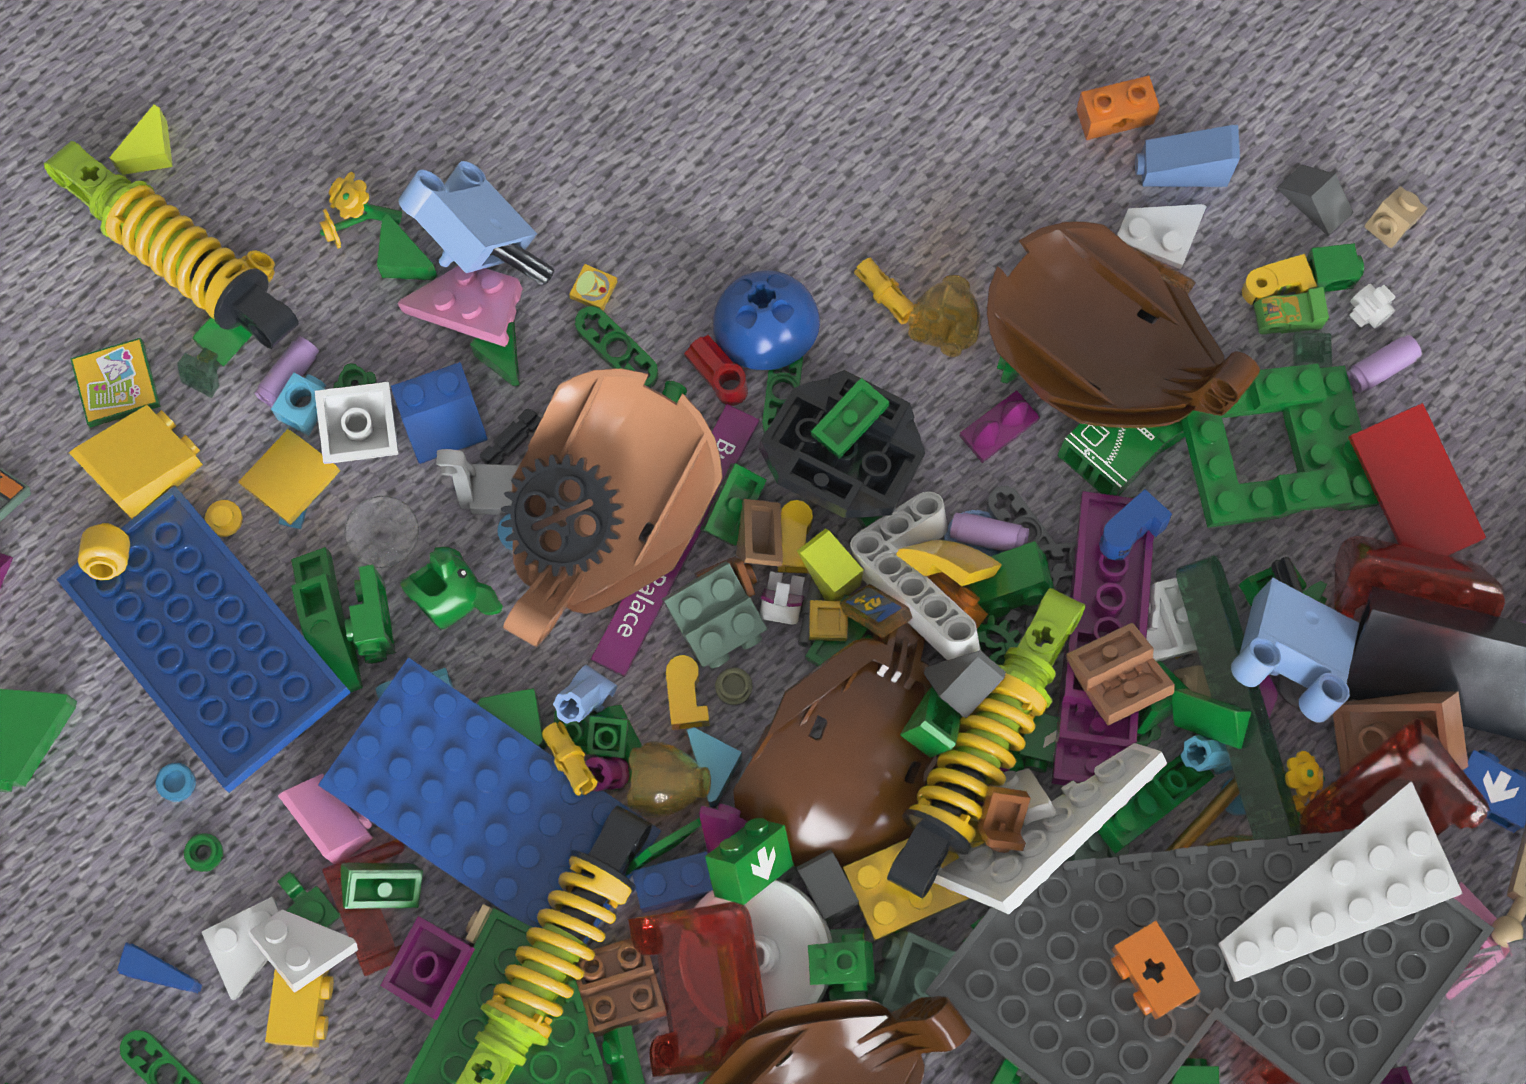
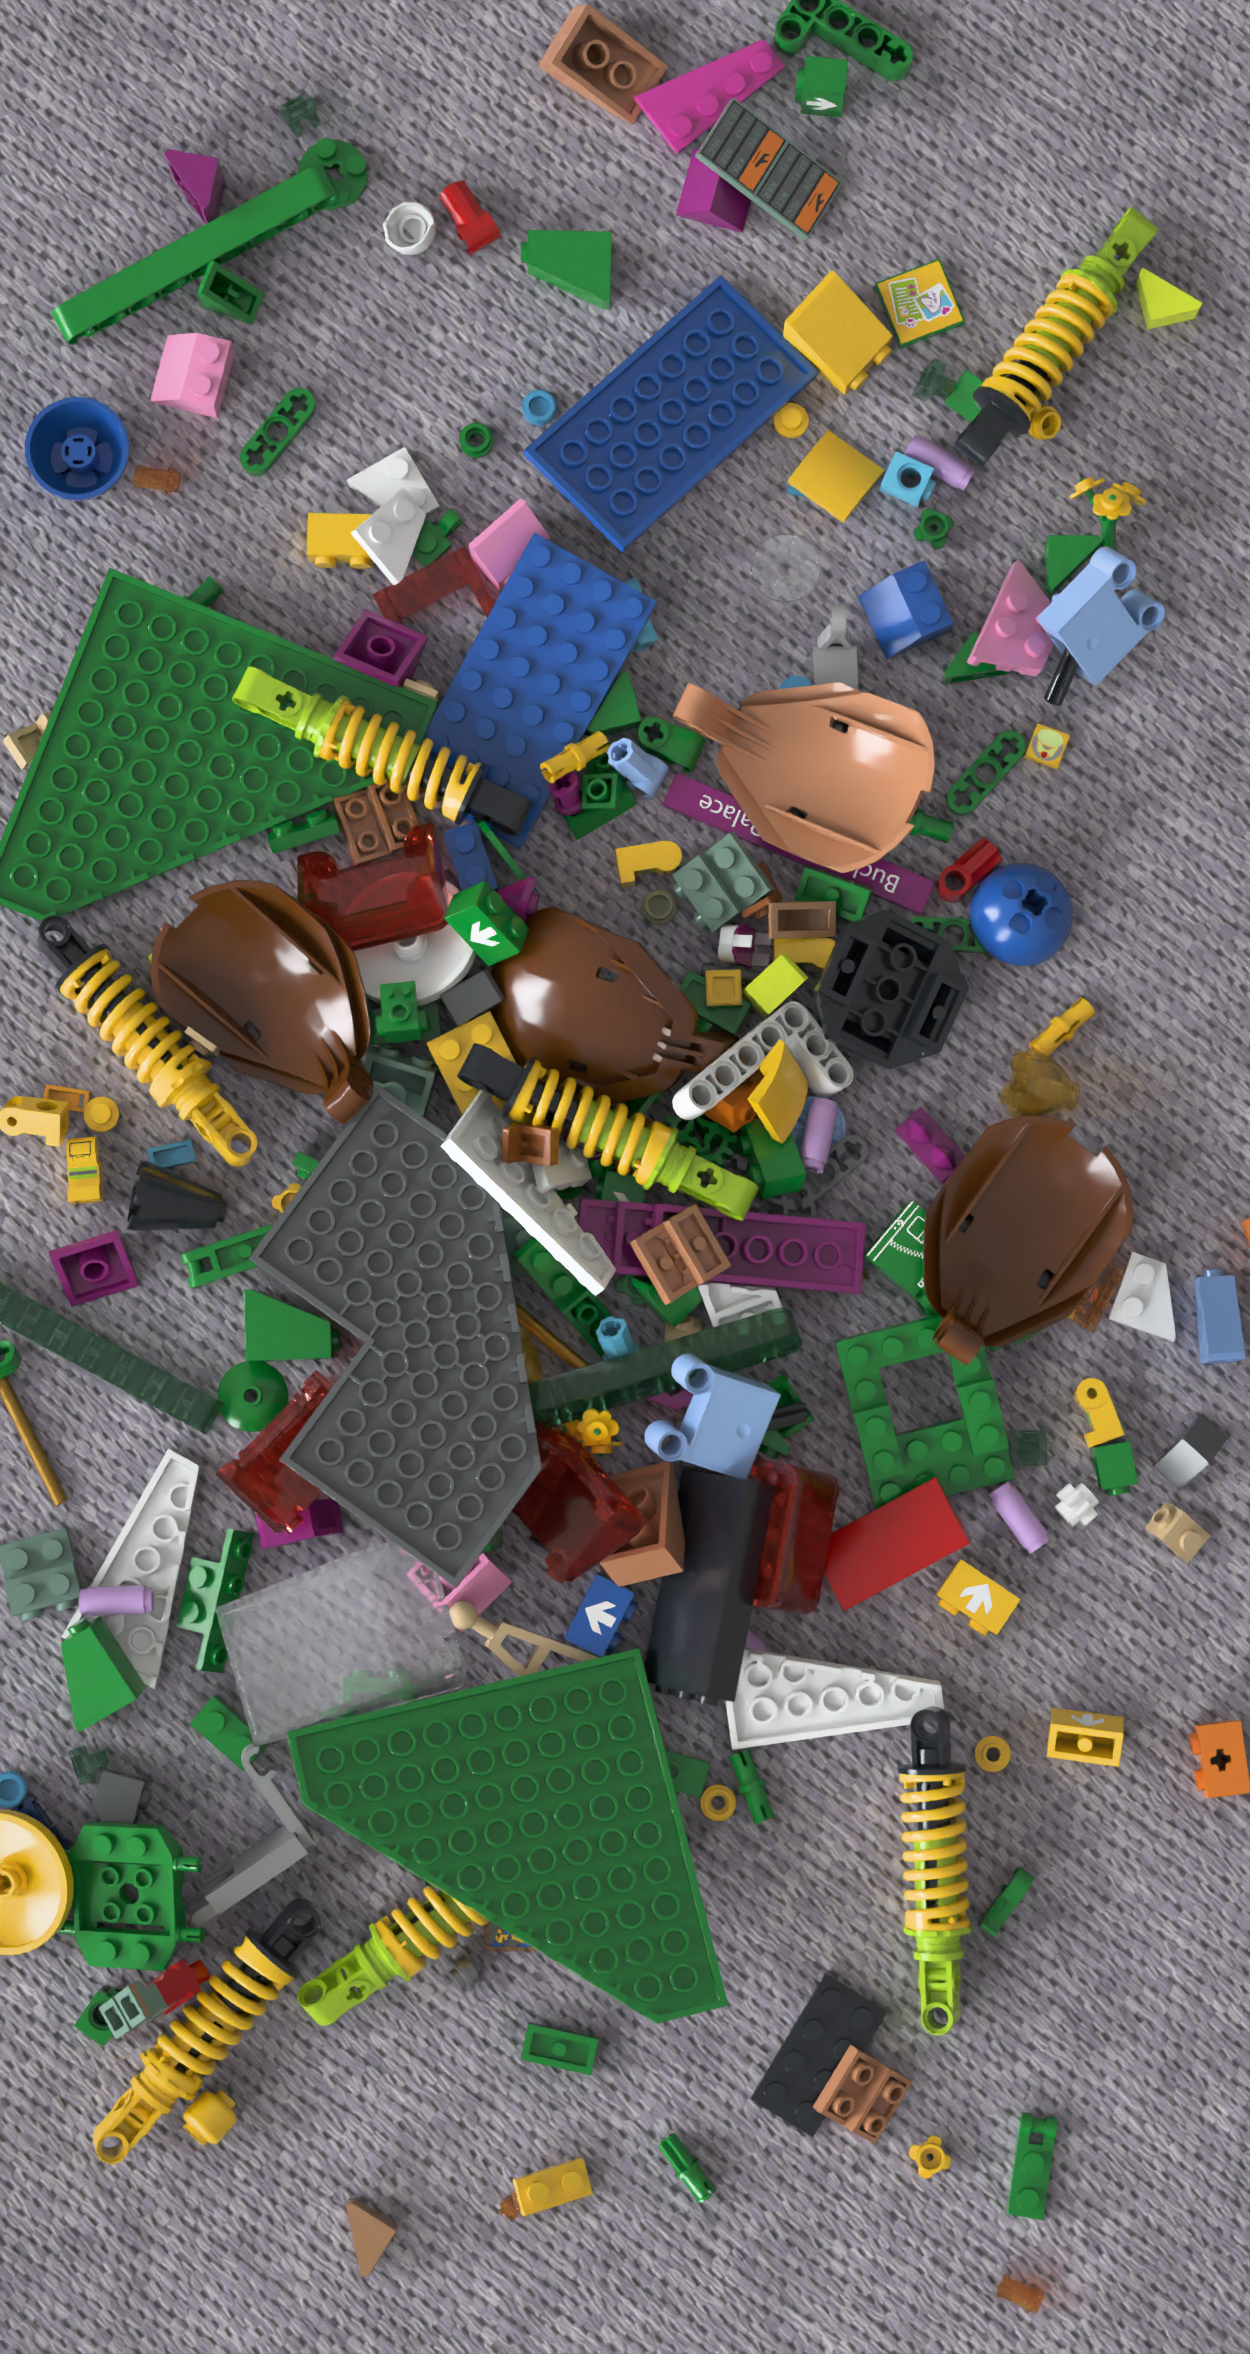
camera: 90 degrees right, 10 degrees up
(103, 551) = (745, 314): yellow head -> none
(147, 967) = (370, 402): blue slope -> none
(322, 615) = (698, 521): green slope -> none
(356, 422) = (886, 533): white slope -> none
(370, 621) = (688, 568): green plate -> none
(380, 885) = (454, 600): green slope -> none
(449, 589) = (731, 633): green piece -> none
(511, 438) = (887, 680): black axle -> none
(549, 484) = (829, 712): black gear -> none
(561, 658) = (677, 743): none -> green piece
(665, 780) = (561, 845): clear yellow piece -> none
(718, 758) = (583, 891): medium azure slope -> none
(850, 418) = (913, 992): green plate -> none
(876, 610) = (728, 1026): tile -> none
(933, 725) = (620, 1081): green slope -> none
(965, 680) = (655, 1103): slope -> none
(1131, 523) = (830, 1265): blue leg -> none
(1175, 981) = (393, 1300): orange brick -> none
(1210, 717) = (646, 1339): green slope -> none
(1292, 312) = (1065, 1424): bright green leg -> none
(1365, 881) = (492, 1471): white wing -> none
(1468, 407) = (977, 1598): none -> yellow brick

